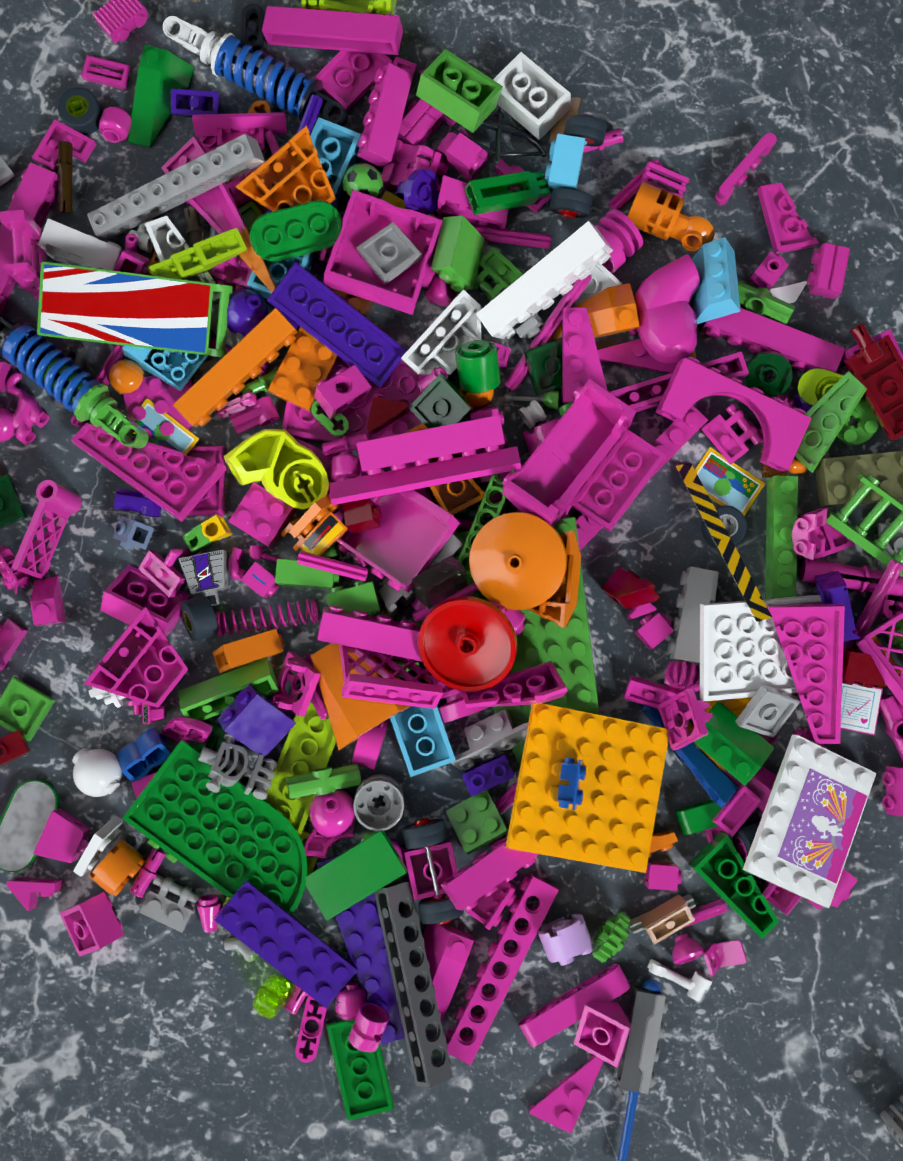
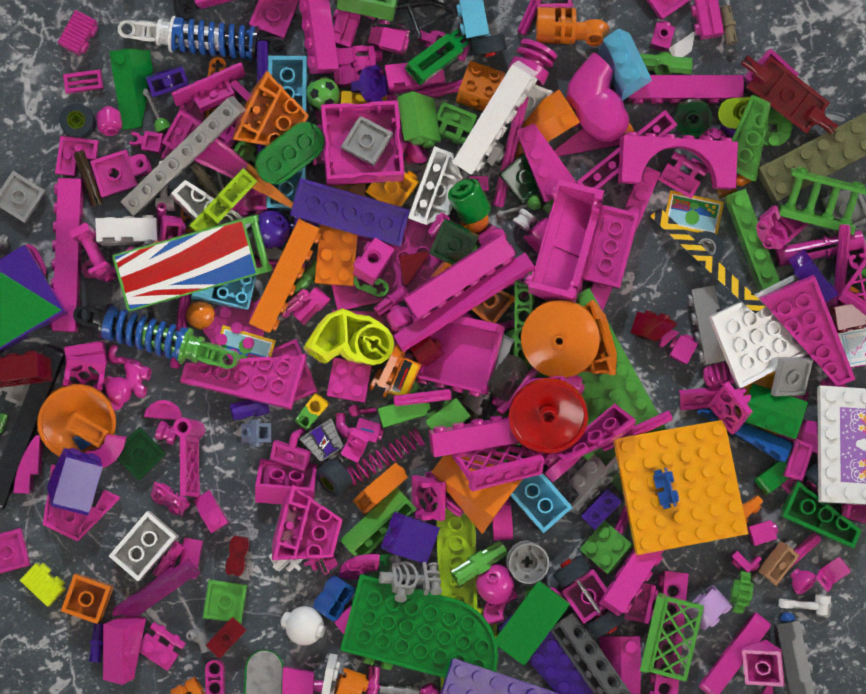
camera: 20 degrees left, 0 degrees up
(28, 491) = (166, 432): none -> dark pink wheel
(43, 467) = (163, 410): none -> dark pink tile
(58, 657) = (238, 550): none -> dark red brick
(114, 182) = (128, 169): none -> dark pink plate
(149, 165) = (150, 141): none -> dark pink plate
(170, 149) = (161, 124): none -> hinge
(237, 592) = (355, 445): none -> dark pink slope
(401, 325) = (396, 191): none -> light orange plate
(489, 950) = (655, 632): none -> bright green fence
(536, 242) = (478, 85): none -> orange bracket
(577, 701) = (645, 426): none -> dark pink axle
(623, 900) = (740, 562): none -> dark pink bracket
(849, 288) = (728, 24): none -> dark tan pin

